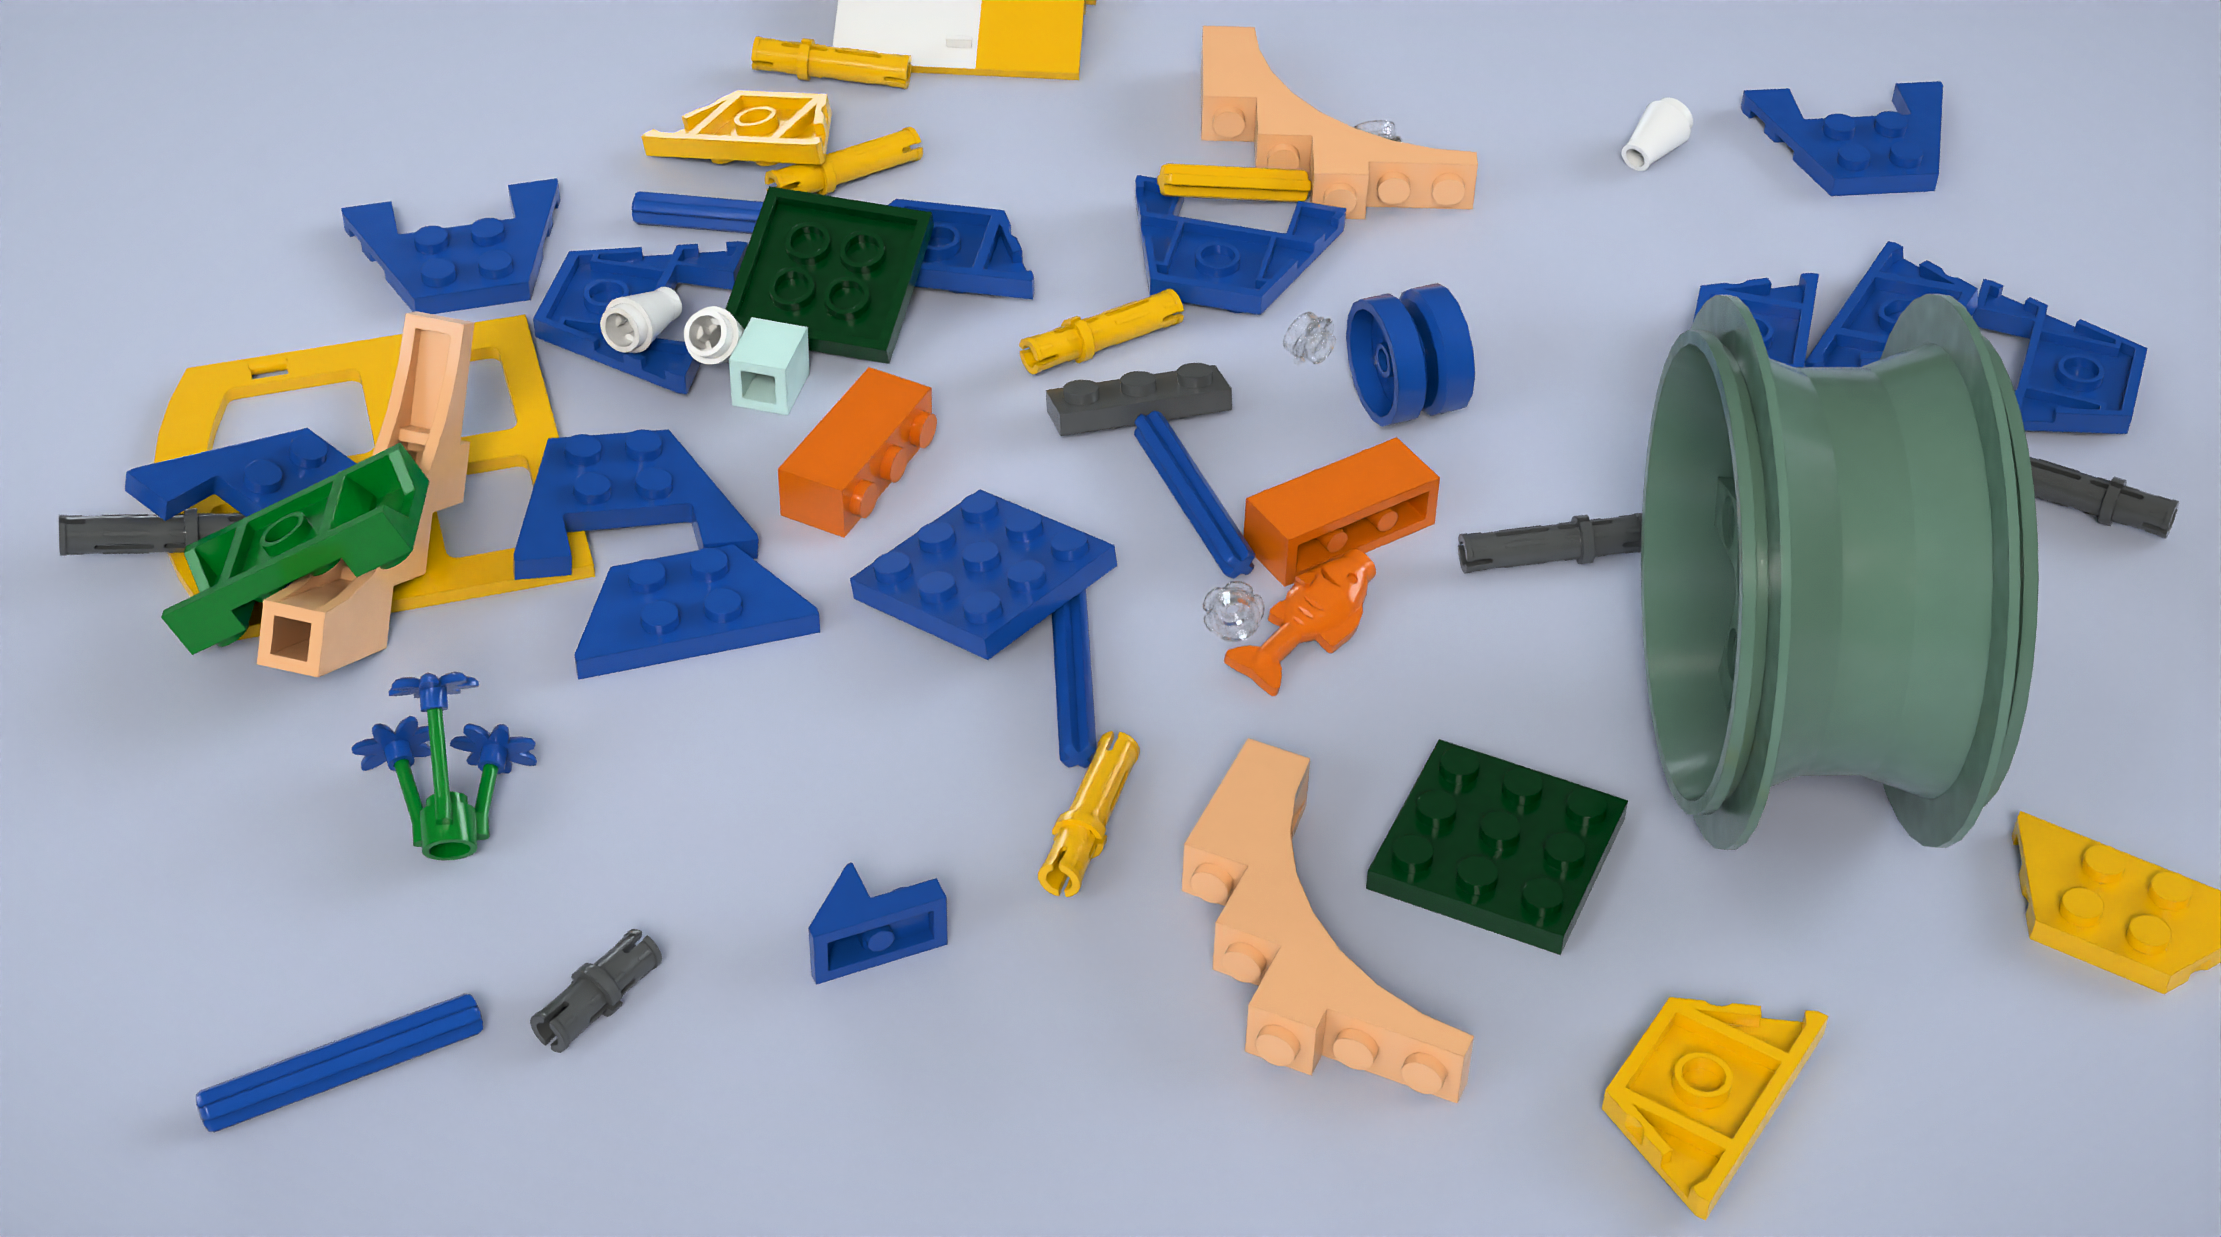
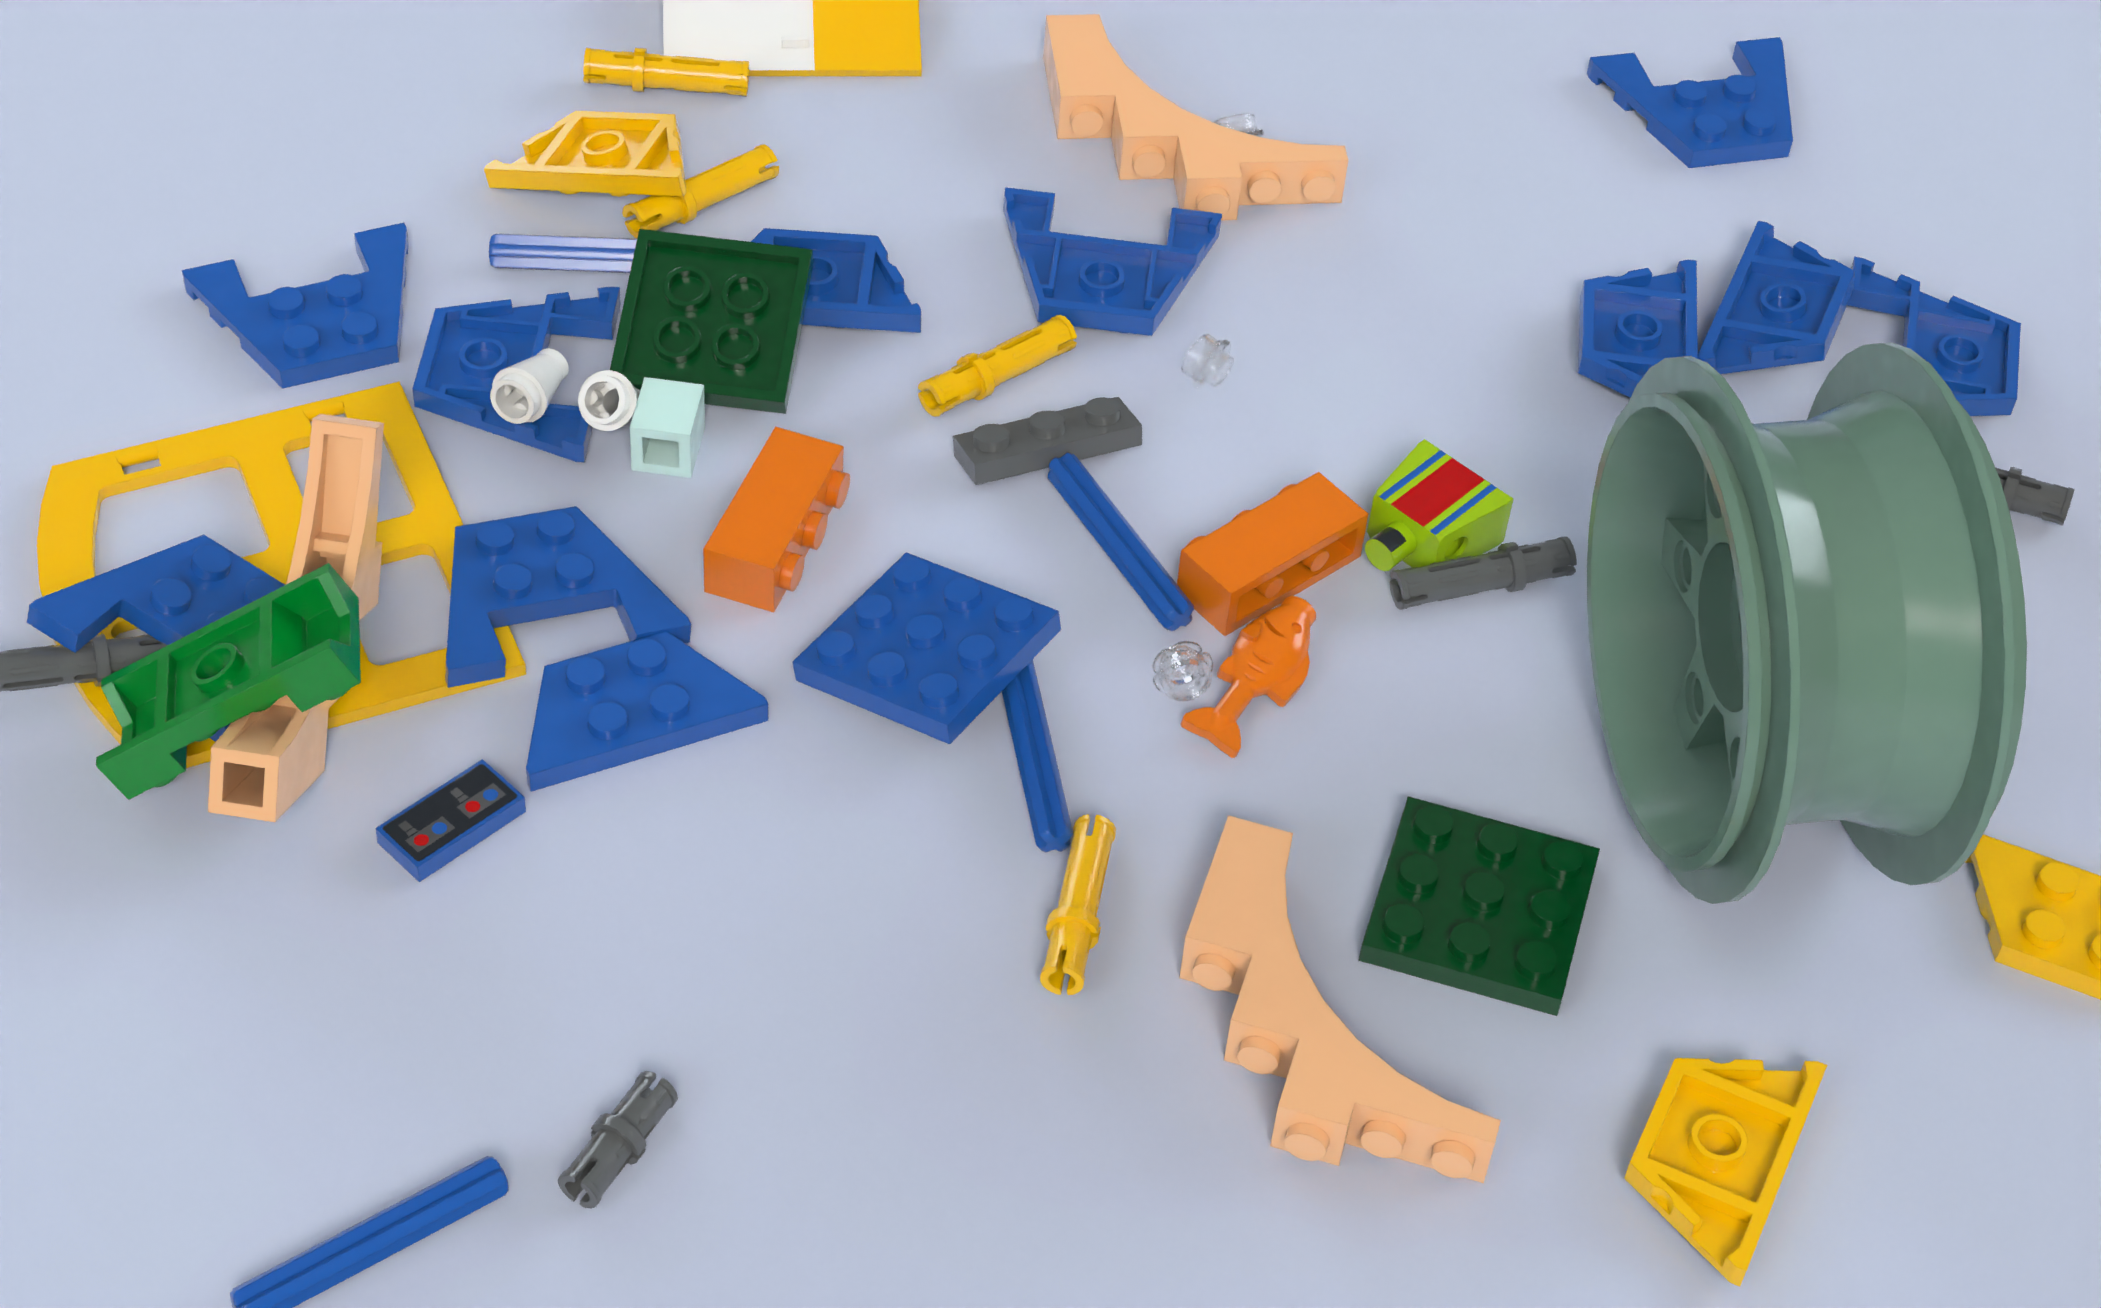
camera: 10 degrees left, 5 degrees up
(447, 824) = (434, 969): plant -> none
(505, 693) = (450, 820): none -> tile
(865, 932) = (880, 1053): blue slope -> none
(1233, 182) = (1104, 191): yellow axle -> none
(1410, 354) = (1317, 379): blue wheel -> none
(1510, 482) = (1434, 512): none -> lime torso
(1660, 130) = (1515, 108): white cone -> none

